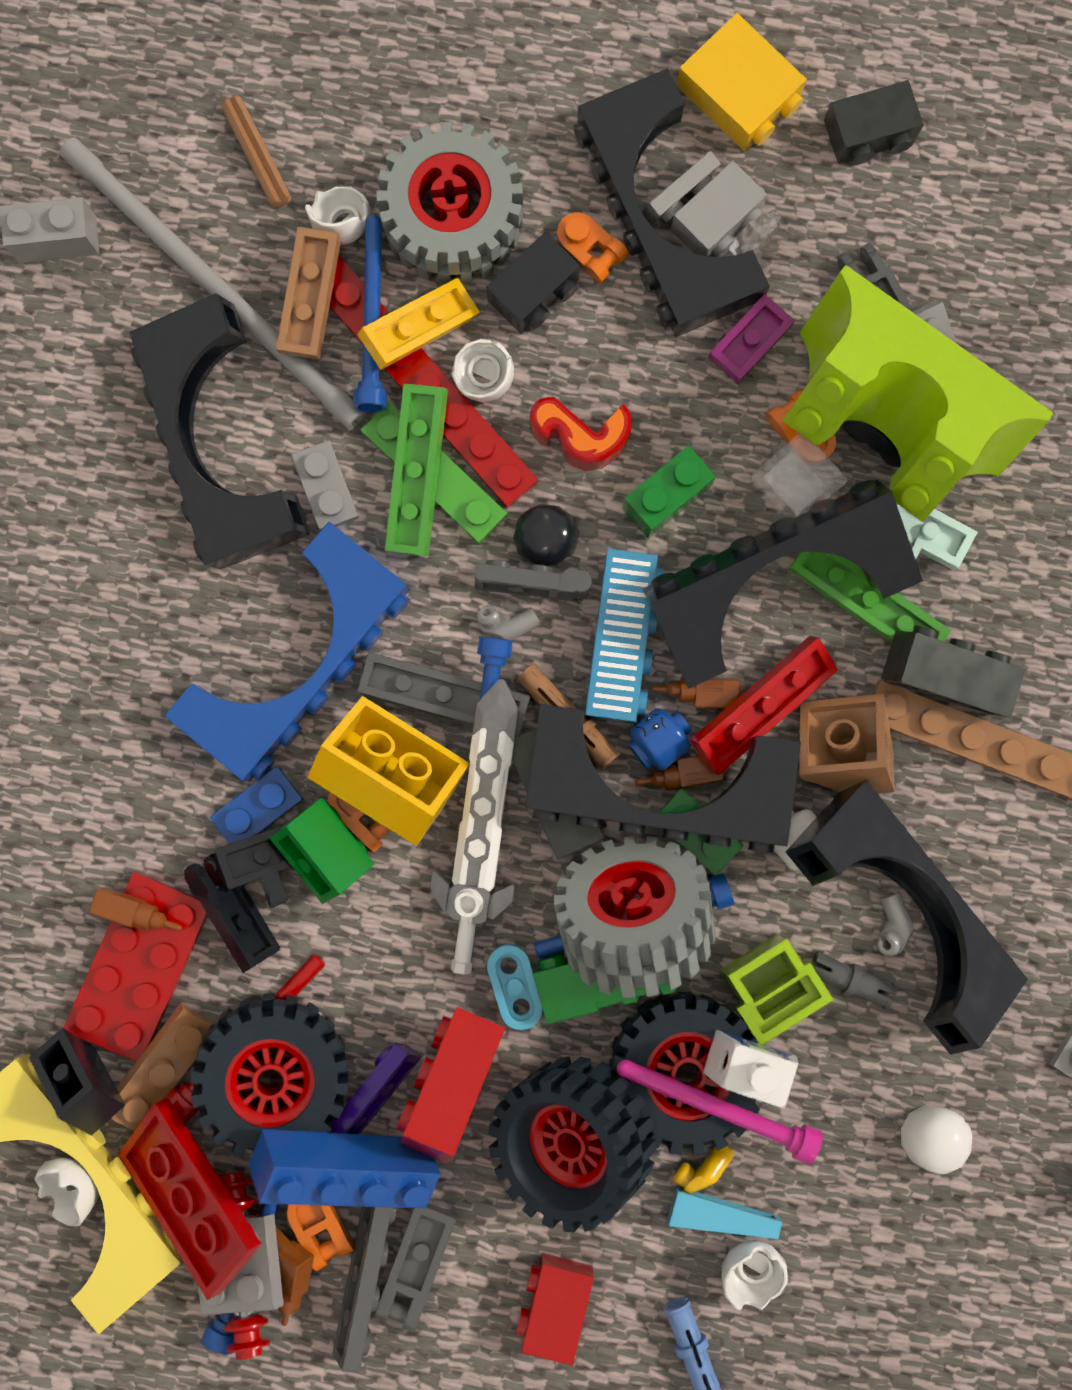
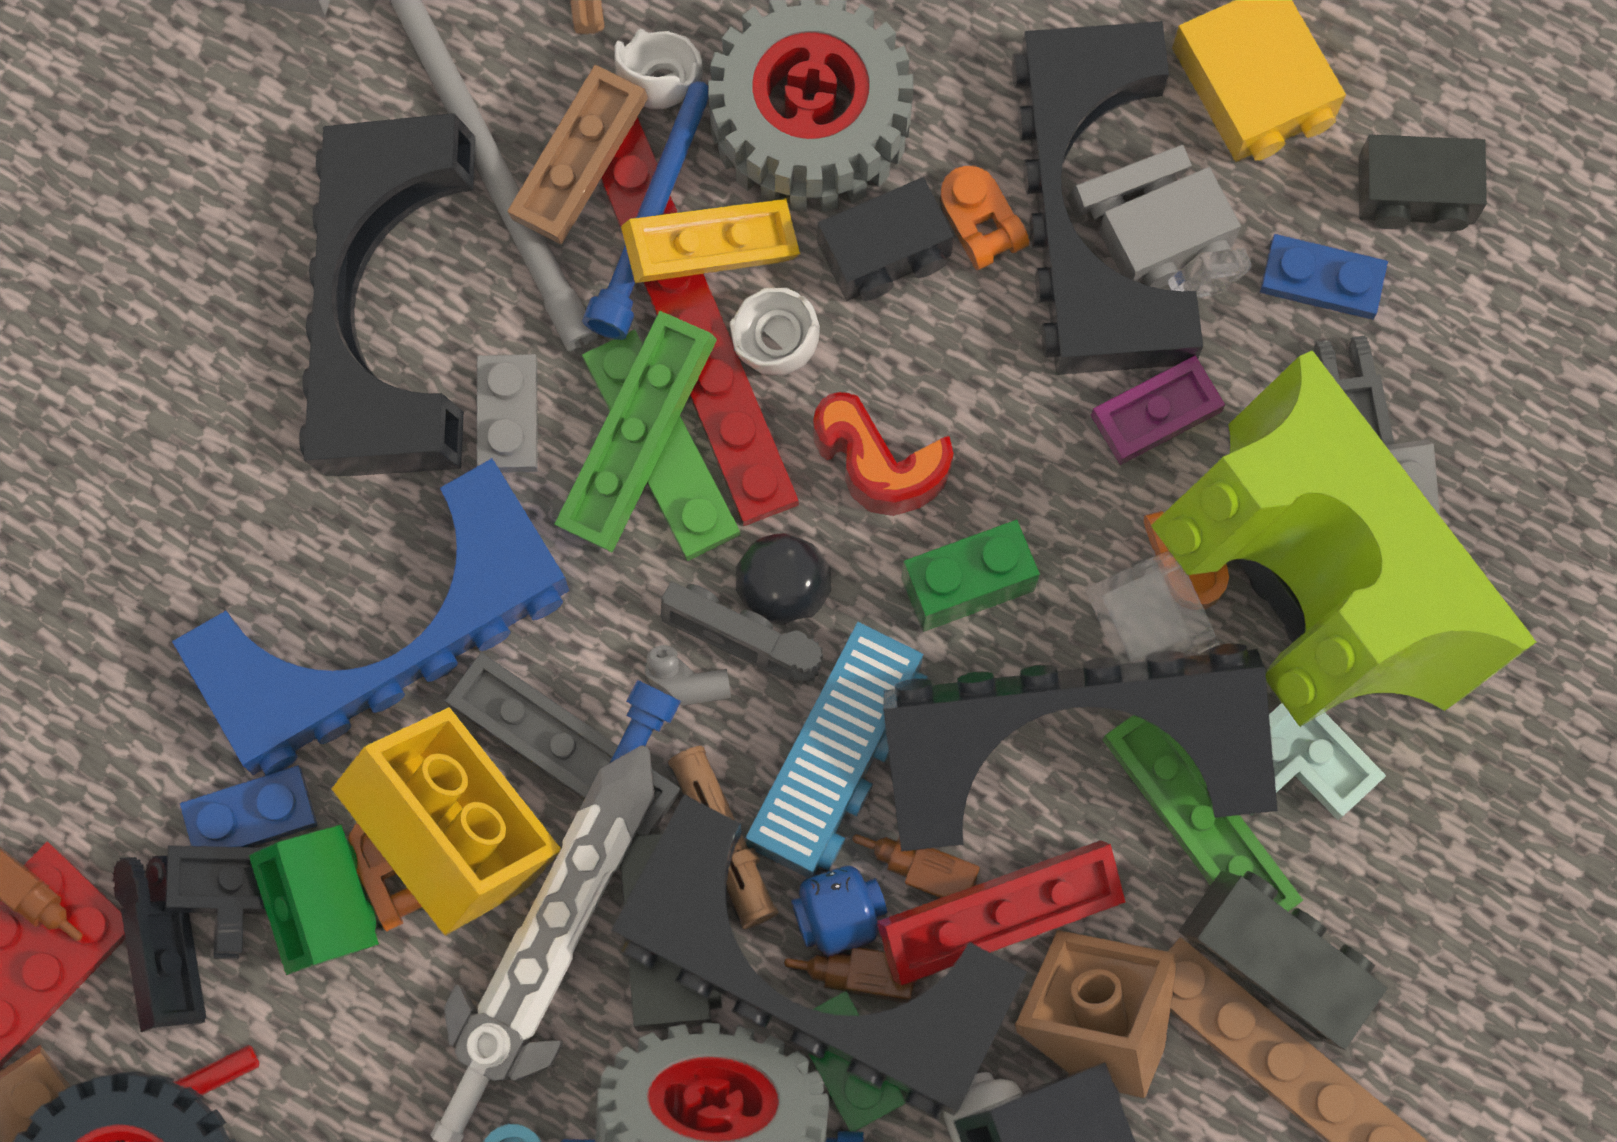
camera: 20 degrees right, 10 degrees down
(828, 211) = (1324, 276): none -> blue plate

